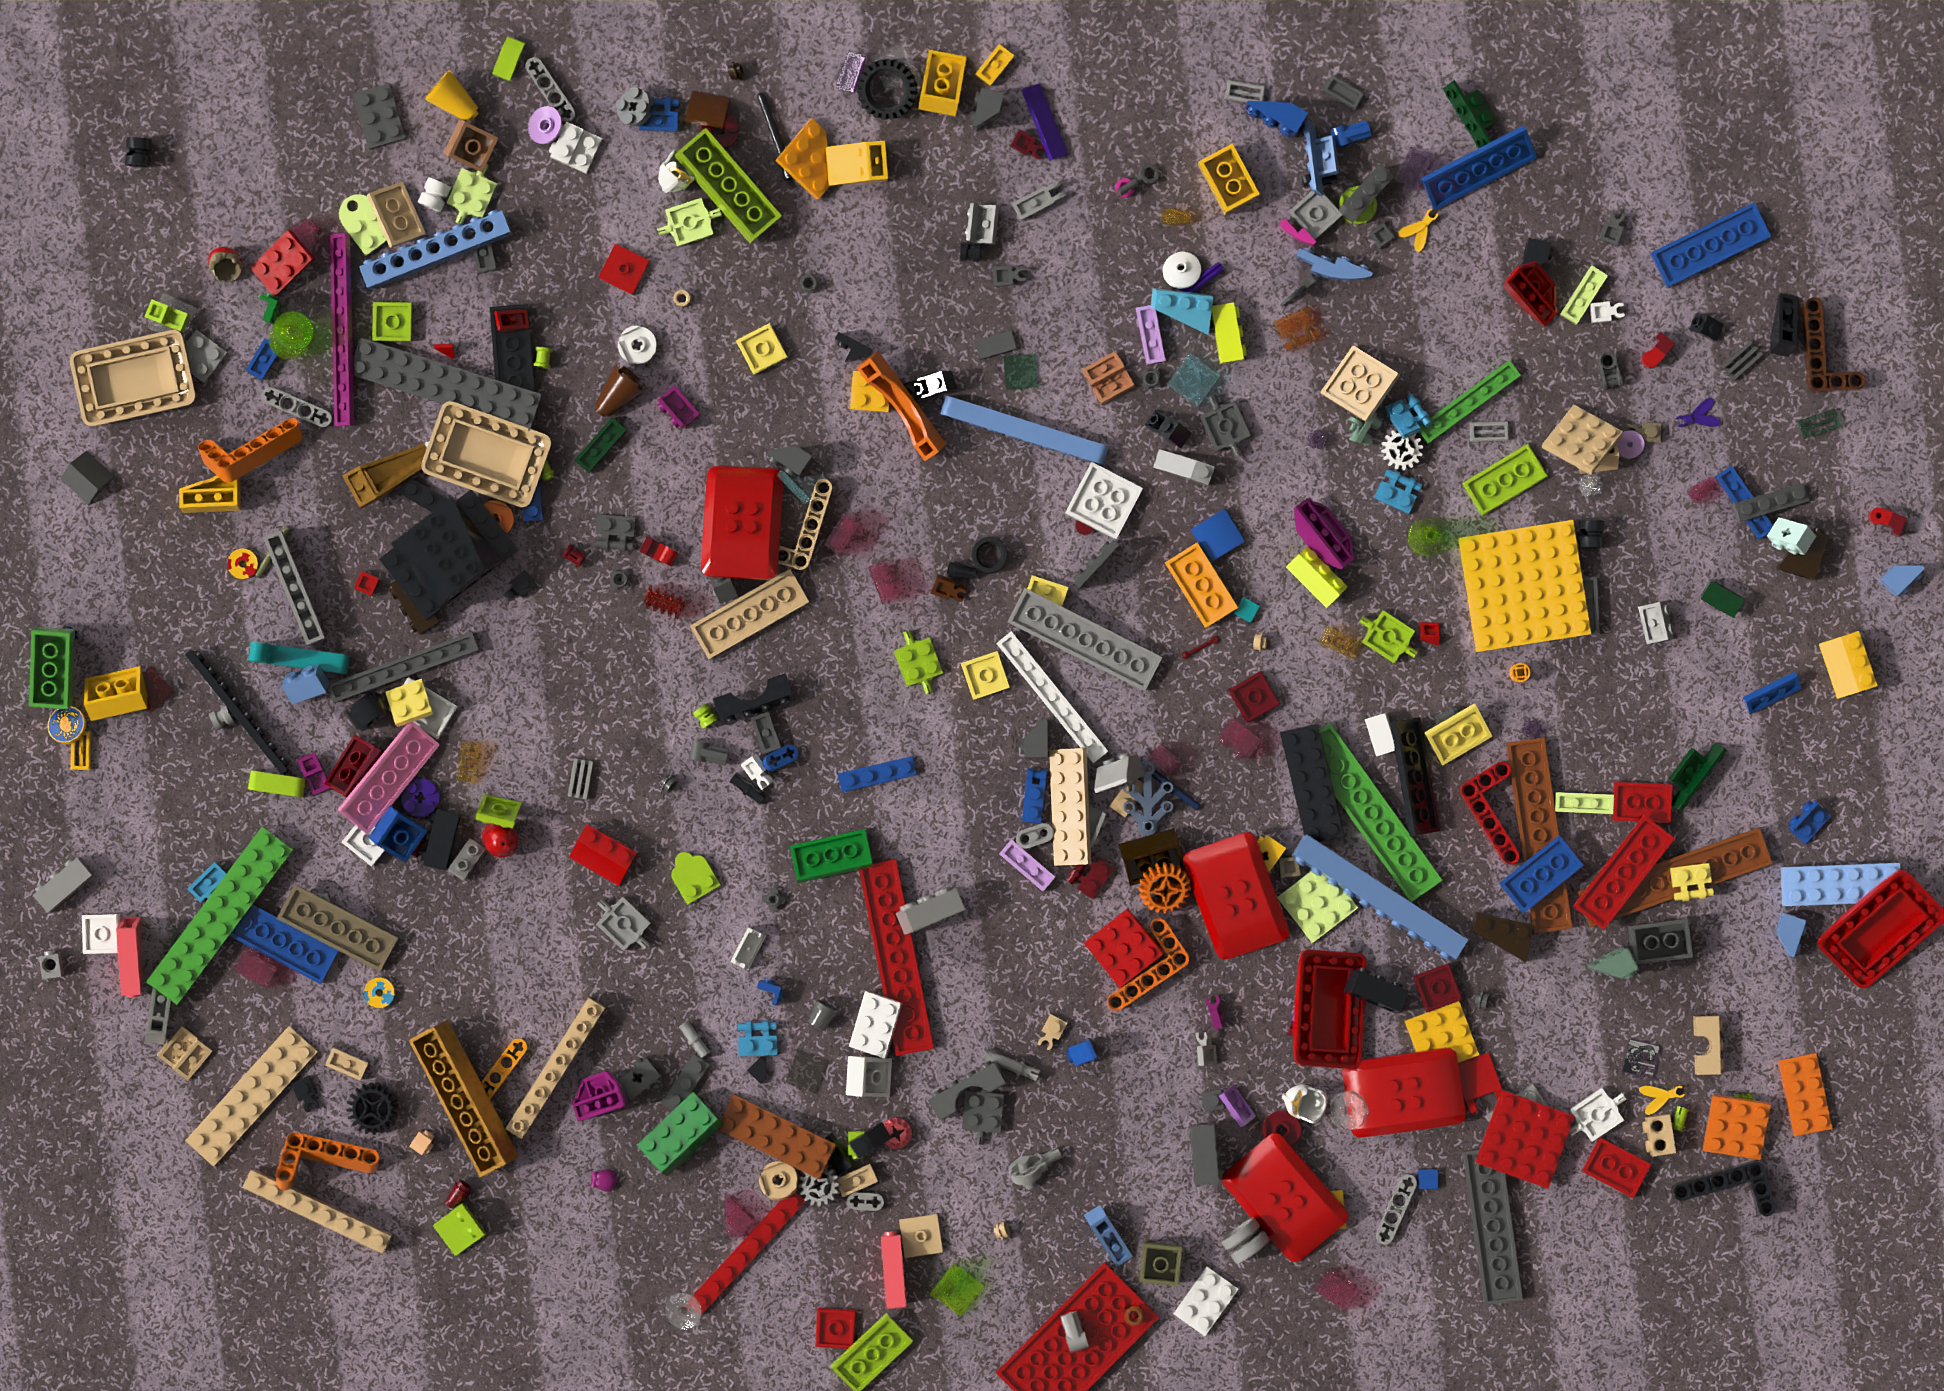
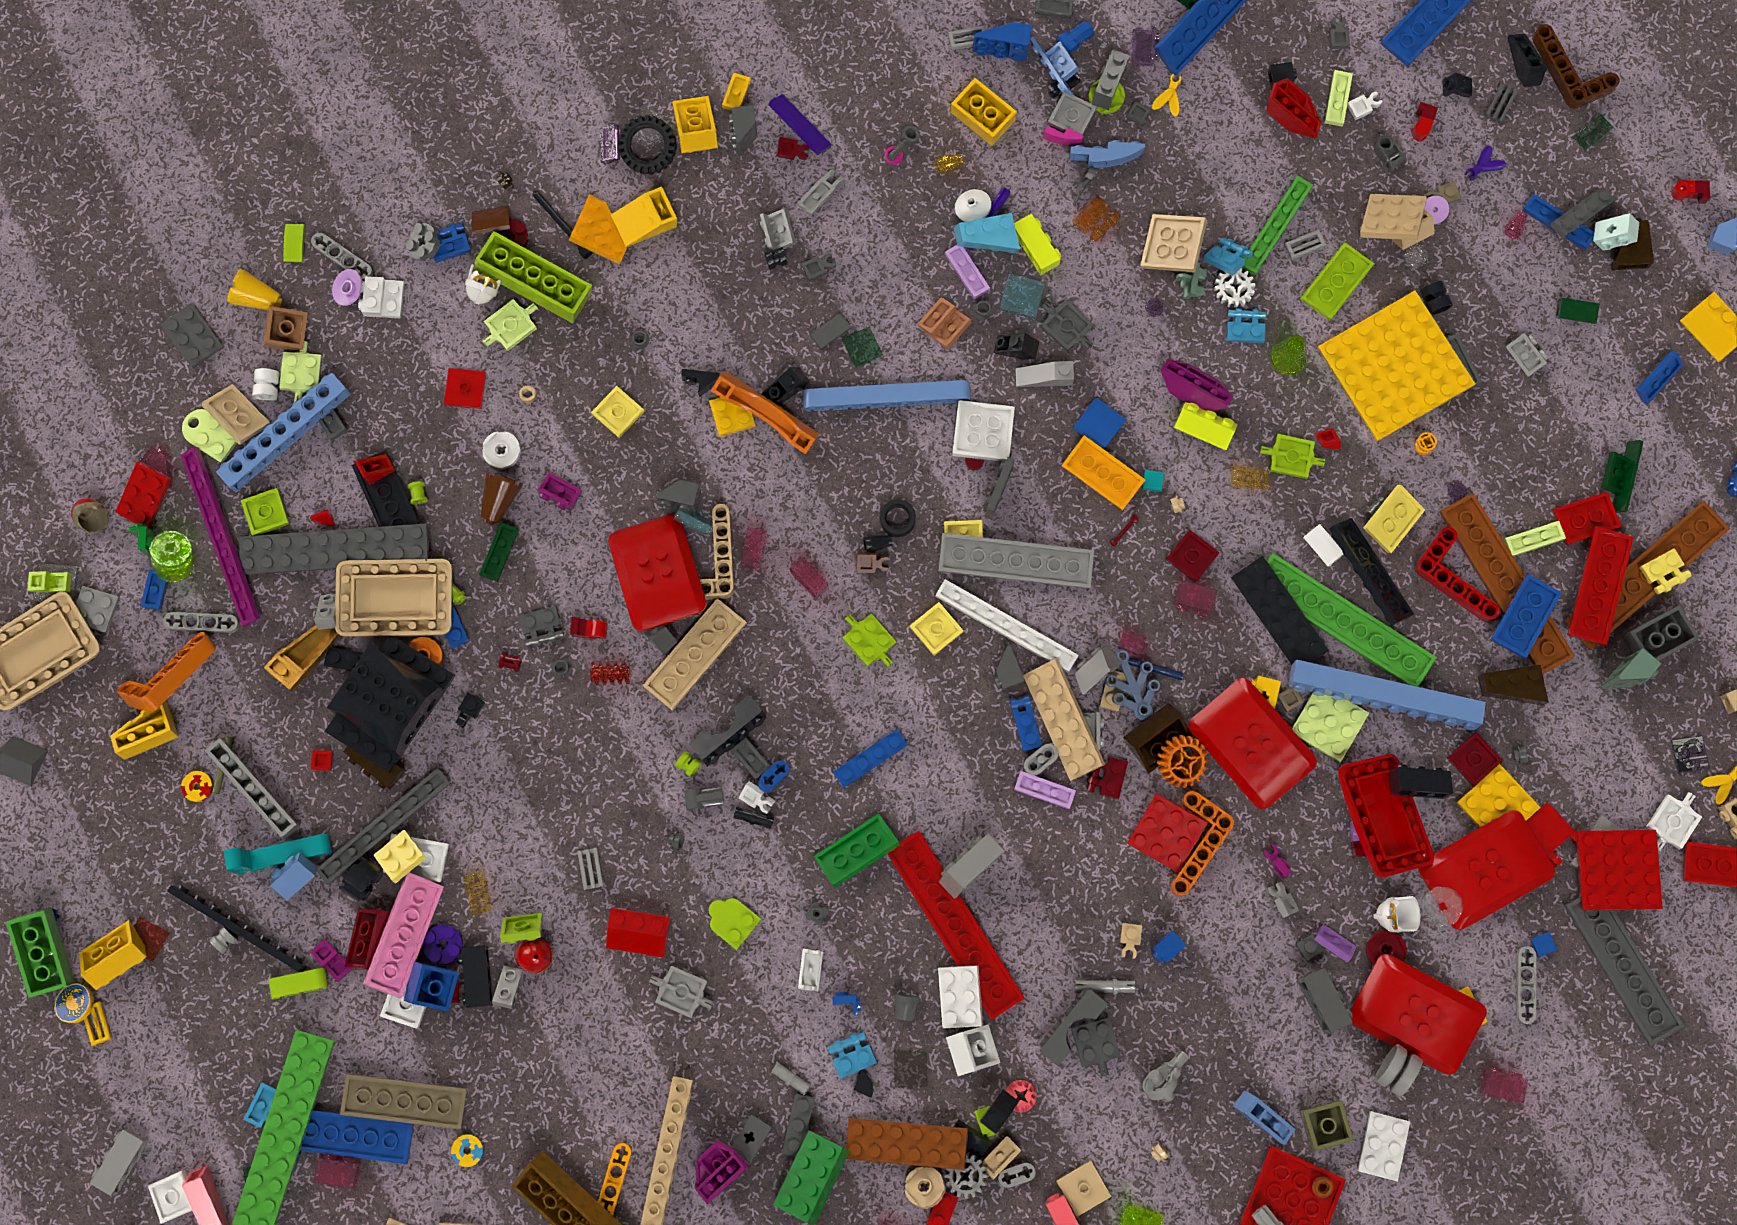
camera: 20 degrees left, 10 degrees down
(418, 443) = (326, 612): none -> light grey plate

